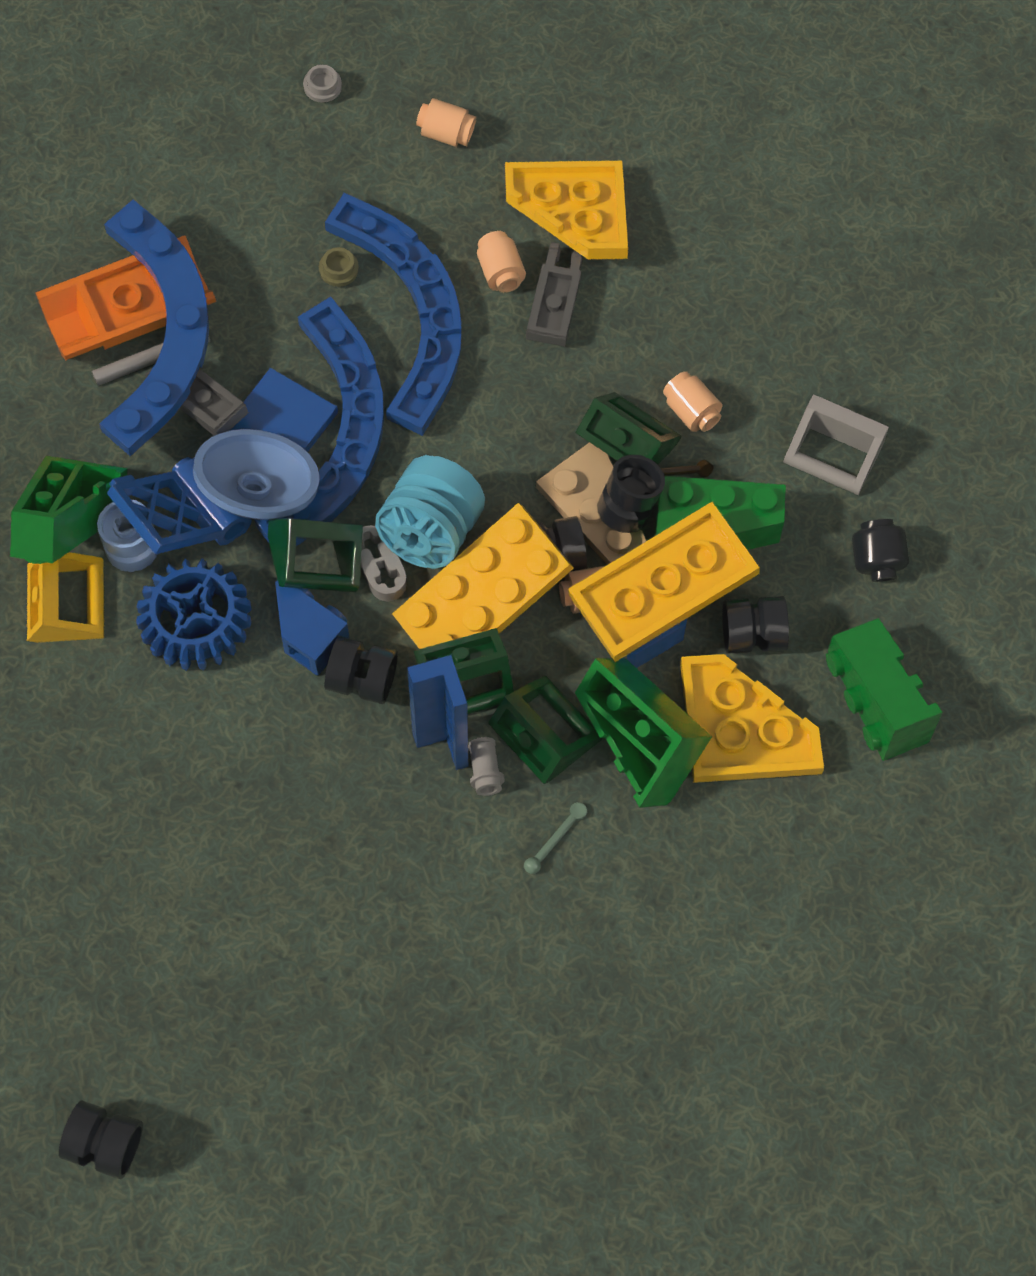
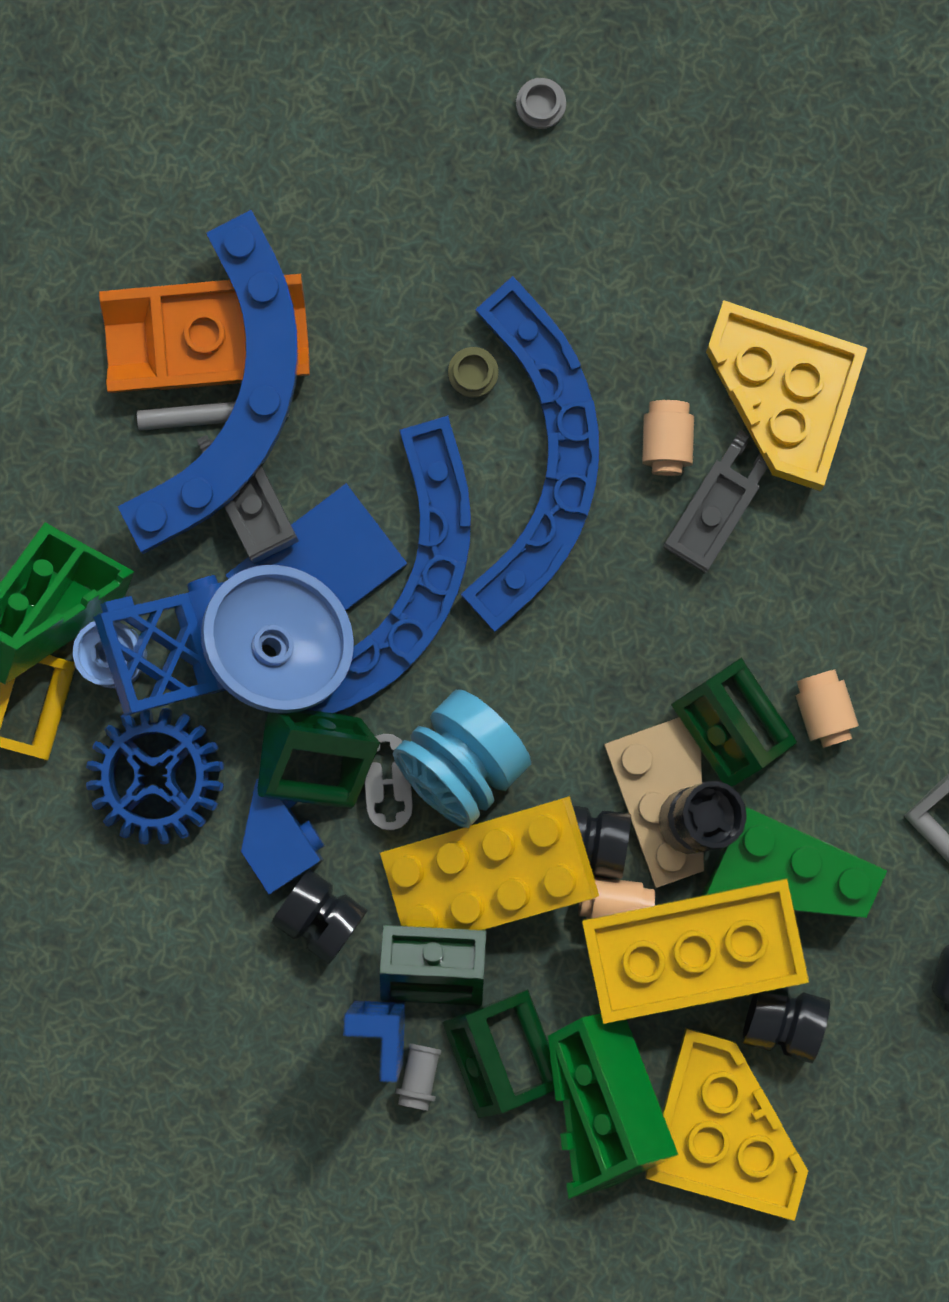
camera: 25 degrees right, 20 degrees up
(446, 123) = (672, 216): light nougat brick -> none
(577, 812) = (503, 1162): sand green hinge -> none
(703, 468) = (805, 793): dark brown hinge -> none
(881, 690) = (896, 1153): green wedge -> none

